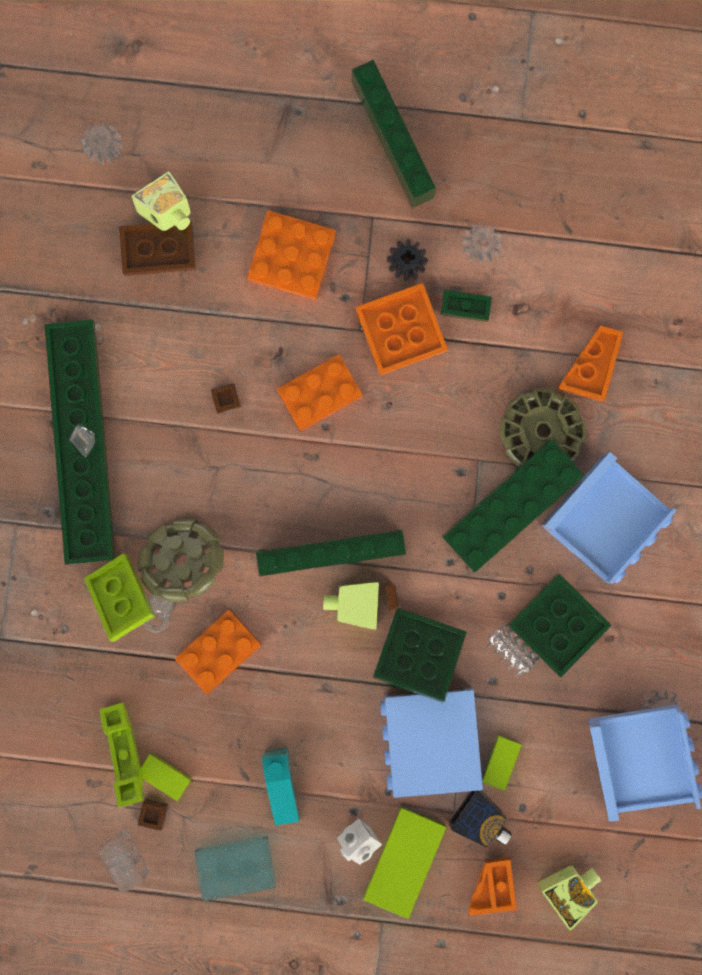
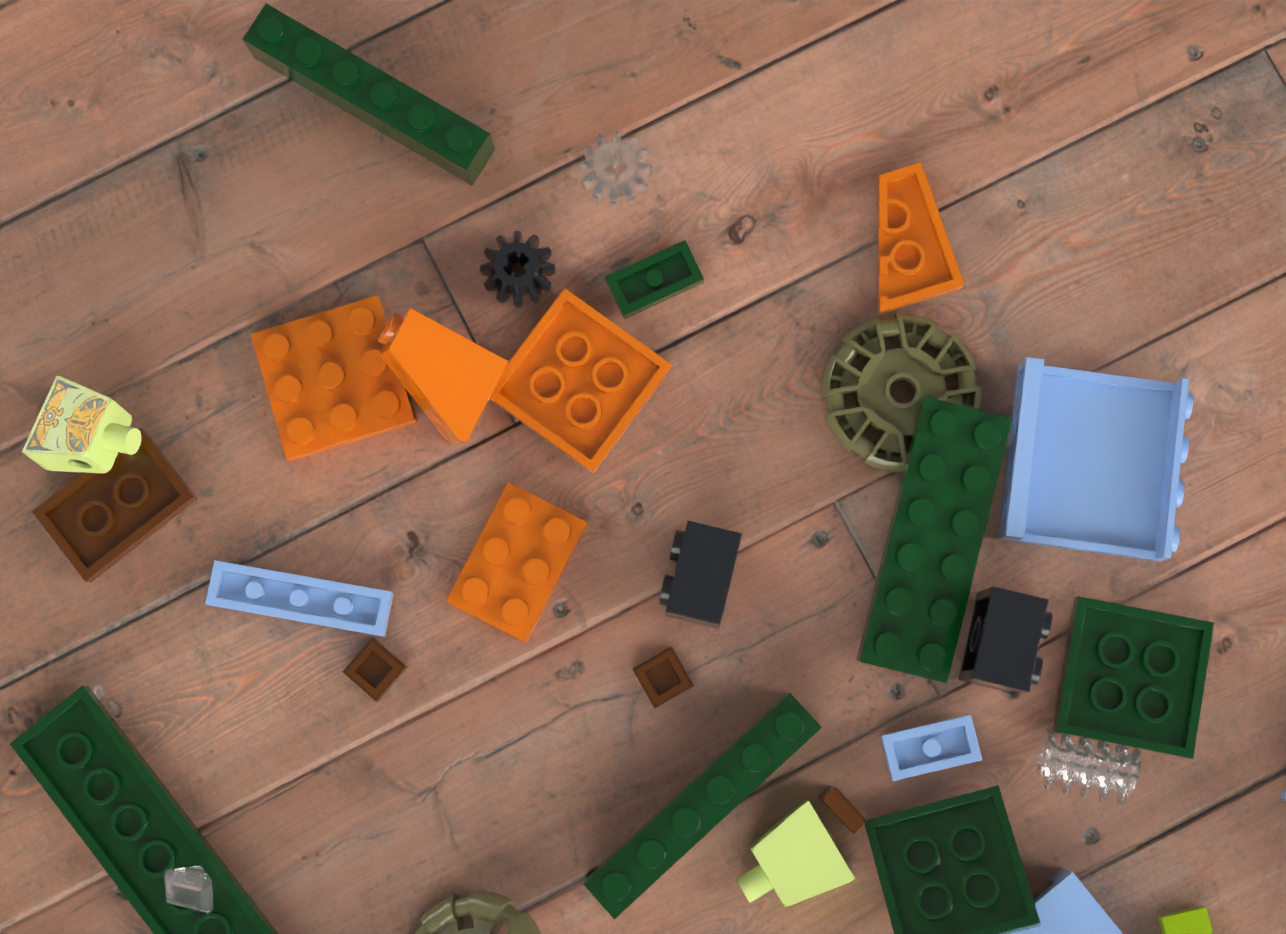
camera: 25 degrees left, 5 degrees down
(212, 344) = (299, 598): none -> light blue plate
(342, 283) = (441, 371): none -> orange slope
(350, 486) = (663, 677): none -> reddish brown tile
(398, 451) = (702, 574): none -> black brick
(448, 596) = (931, 747): none -> light blue plate
(513, 570) = (1005, 640): none -> black brick

